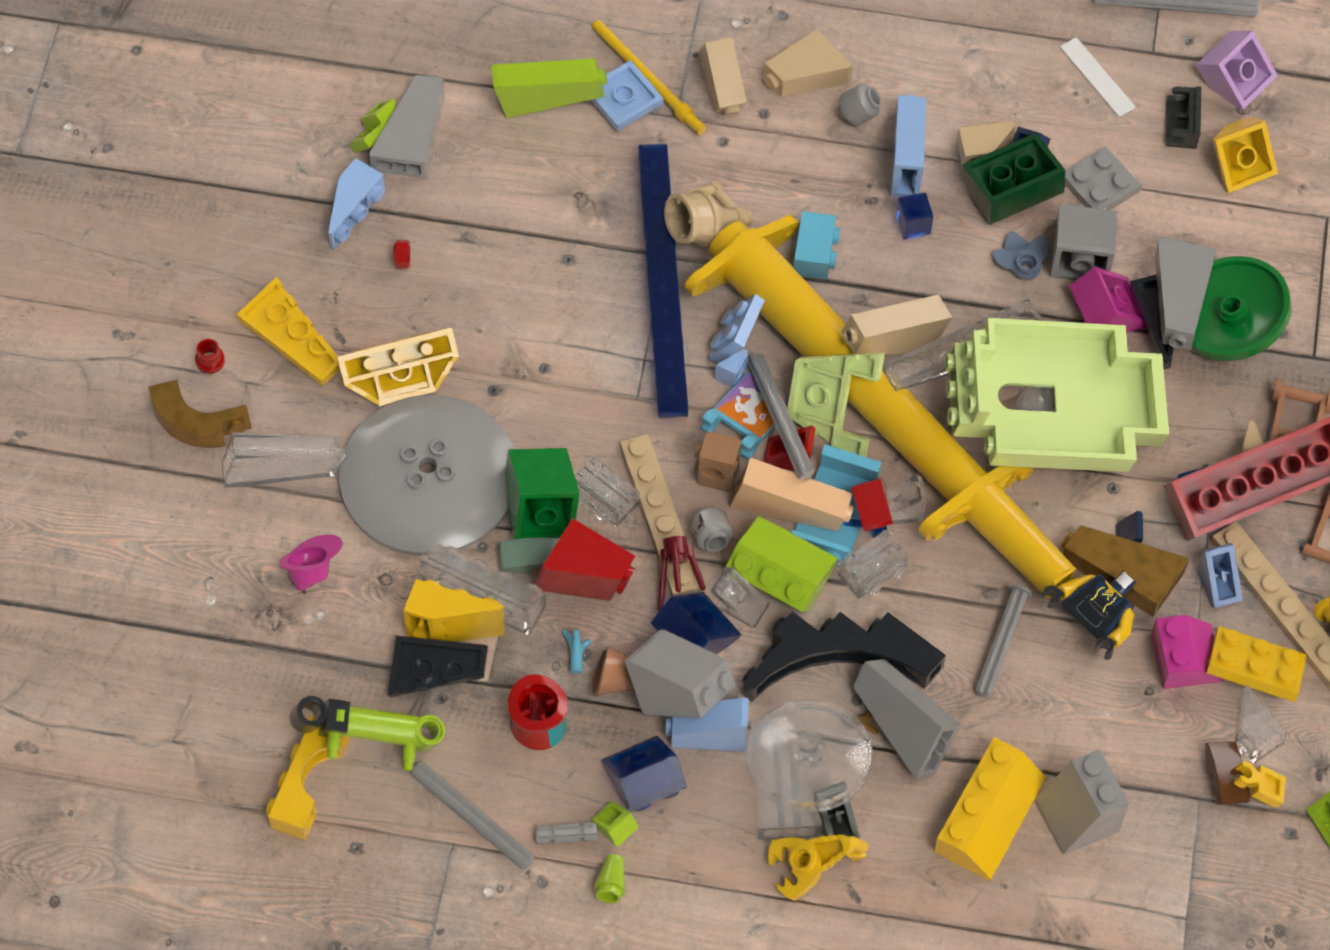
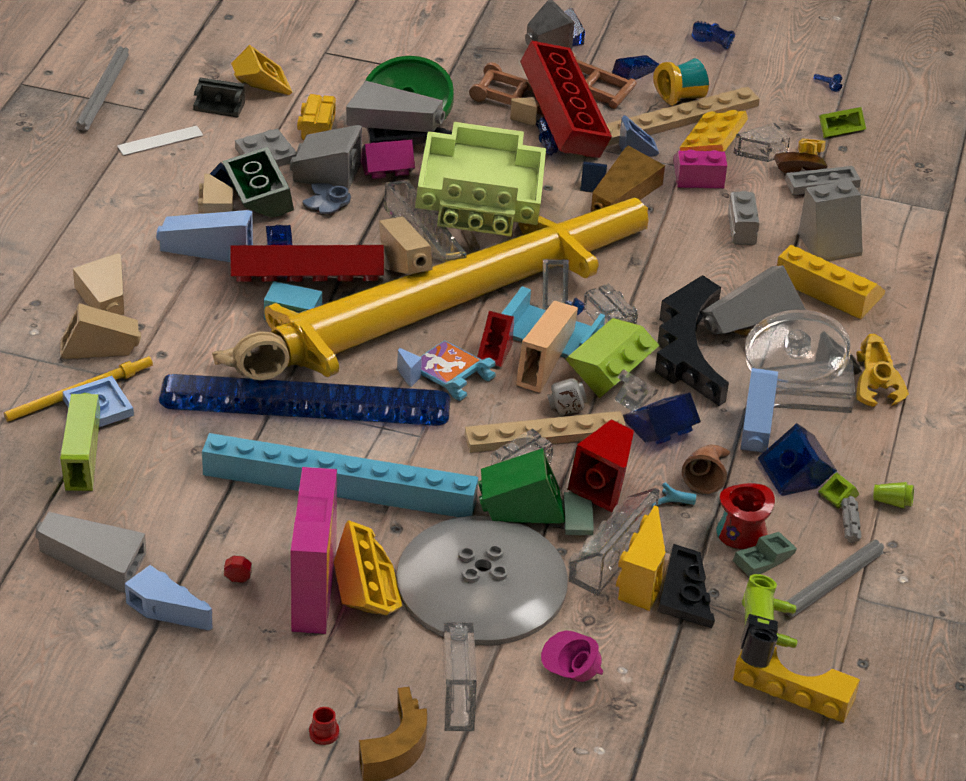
camera: 85 degrees left, 20 degrees down
(283, 326) = (298, 668): yellow wing -> none
(375, 121) = (81, 575): lime slope -> none
(390, 295) = (313, 550): none -> dark pink tile
(498, 744) = (767, 554): none -> sand green slope
(545, 320) = (356, 477): none -> medium azure brick
(675, 553) = (596, 410): dark red plant -> none
(678, 677) = (727, 412): light grey slope -> none
(718, 461) = (509, 376): medium nougat brick -> none
(735, 329) = (376, 352): light blue plate -> none
(781, 416) = (476, 332): light grey axle -> none
(822, 391) = (449, 305): yellowish green wing -> none
(859, 104) = (157, 259): light grey head -> none
(871, 233) = (307, 261): none -> red brick
(872, 504) = (558, 290): red slope -> none
(1002, 639) = (682, 255): light grey axle -> none
(1085, 704) = (743, 218): none -> light grey brick
(1098, 607) = (668, 194): torso -> none
(1170, 220) = (316, 115): none -> yellow brick
(1197, 802) = (800, 181): none -> light grey plate
(1237, 68) = (178, 65): lavender slope -> none

